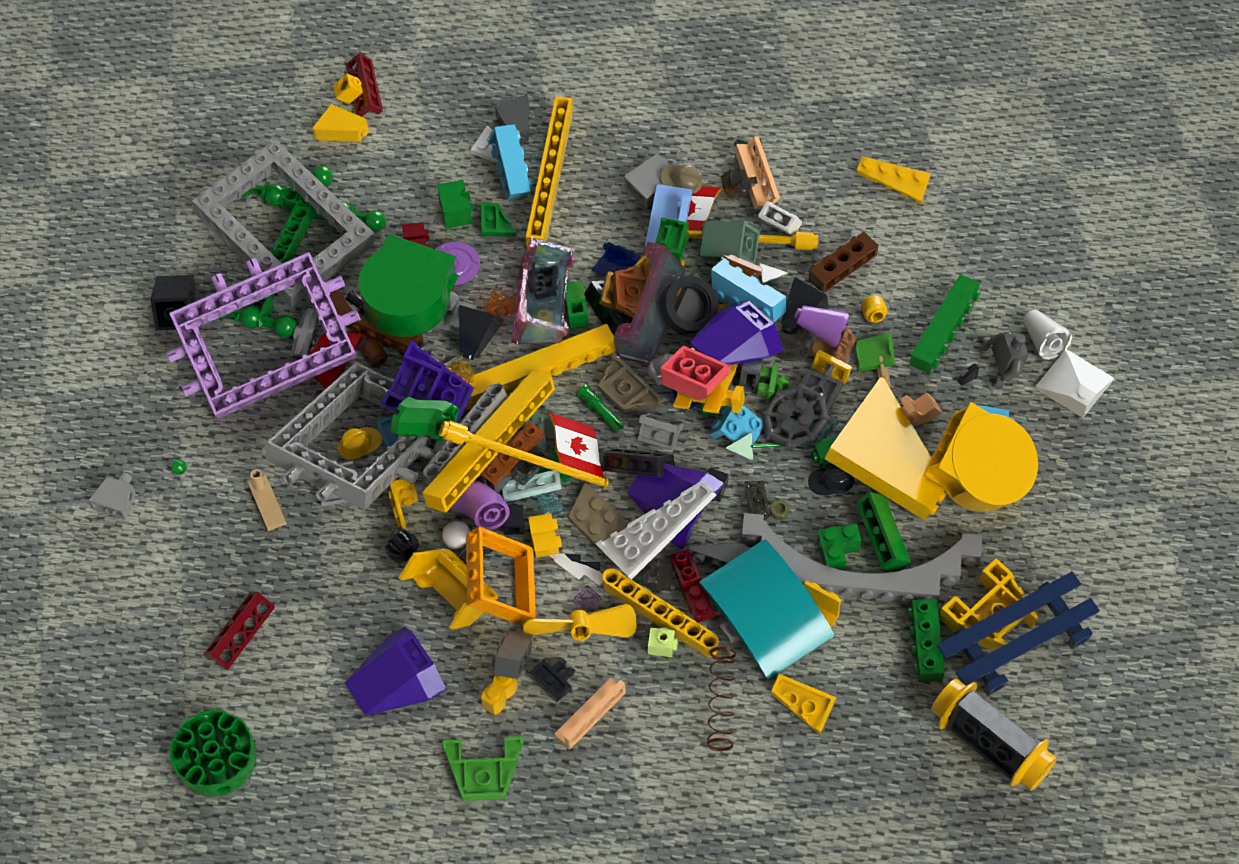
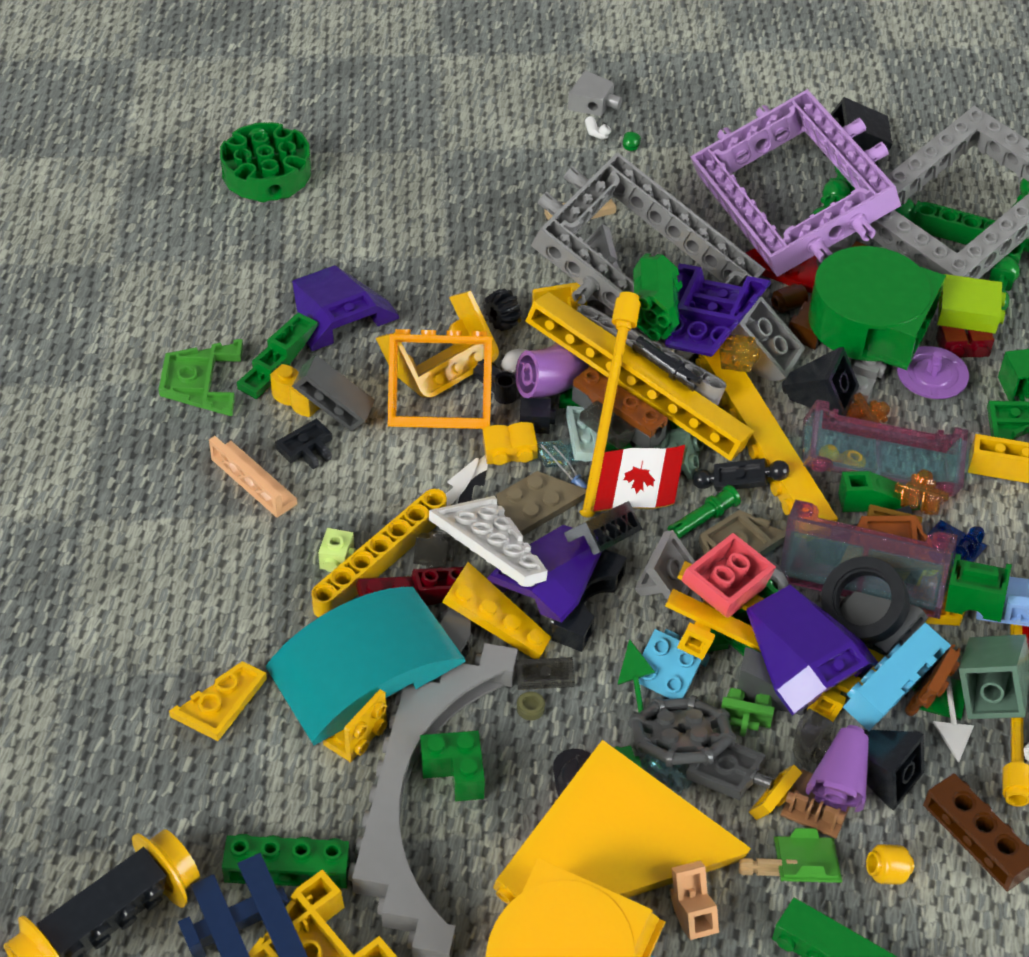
camera: 90 degrees right, 10 degrees down
(161, 495) = (599, 132): none -> white arm
(232, 627) = (420, 180): dark red fence -> none
(393, 221) = (971, 304): none -> lime brick
(459, 710) = (281, 349): none -> green slope
(492, 410) = (675, 369): none -> black pin
(543, 281) = (905, 450): black bracket -> none
(565, 383) = (741, 474): none -> black plate
(573, 490) = (577, 480): none -> piece
(577, 274) = (922, 488): none -> clear orange hips
(587, 598) = (414, 485): tile -> none
(612, 621) = (375, 501): yellow piece -> none
(712, 530) = (492, 610): none -> yellow wing
(721, 659) = (305, 615): reddish brown piece -> none
(883, 532) = (472, 822): green brick -> none

